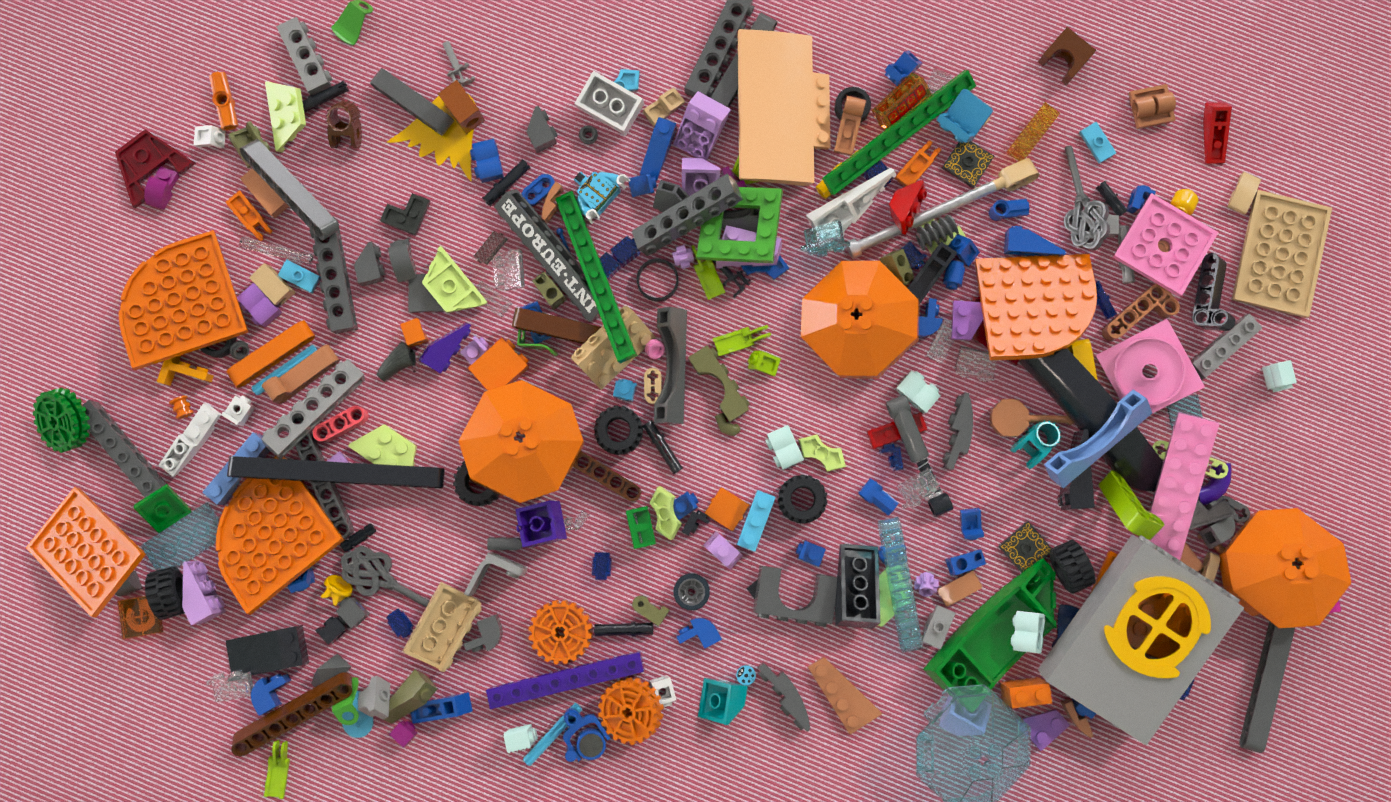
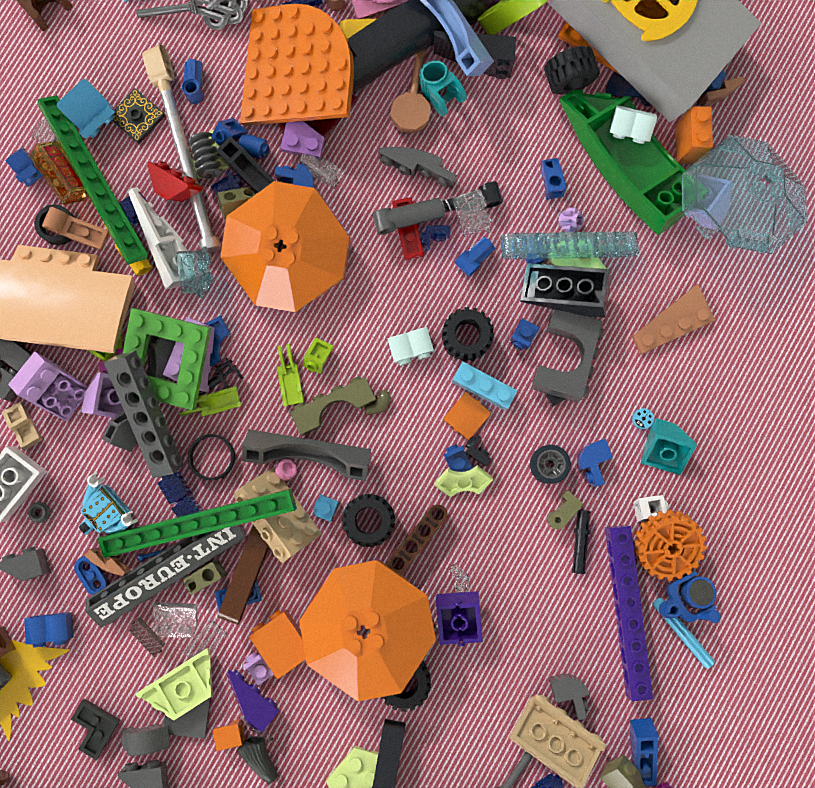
camera: 85 degrees left, 0 degrees up
(503, 185) = (77, 610): black pin -> none
(504, 543) = (474, 661): dark grey bar -> none
(513, 569) = (503, 655): light grey piece -> none
(520, 738) = (687, 669): light aqua brick -> none
(521, 343) = (259, 614): bright green piece -> none
(545, 631) = (592, 616): orange piece -> none
(601, 565) = (511, 557): clear blue brick -> none
(640, 527) = (476, 509): green window -> none
(642, 185) = (104, 460): blue bracket -> none
(647, 384) = (324, 482): tan beam -> none
(649, 428) = (370, 485): black pin -> none
(658, 147) = (66, 437): blue slope -> none
(683, 256) = (190, 426): lavender gear -> none
(723, 550) = (510, 426): lavender torso -> none
(791, 701) = (674, 375): dark grey slope -> none
(830, 457) = (427, 300): yellowish green tile -> none
(917, 165) = (131, 167): orange hinge -> none
(918, 391) = (372, 198): light aqua brick -> none
(937, 626) = (616, 214): light grey brick -> none
(959, 588) = (579, 188): nougat slope -> none
(971, 523) = (514, 166): blue bracket -> none
(975, 364) = (350, 137): clear bracket -> none
(1025, 547) = (544, 117): pearl dark grey plate -> none
(1027, 243) = (232, 66): blue slope -> none
(1033, 132) = (116, 44): clear yellow brick -> none
(1046, 727) = (727, 122): medium lavender wing -> none

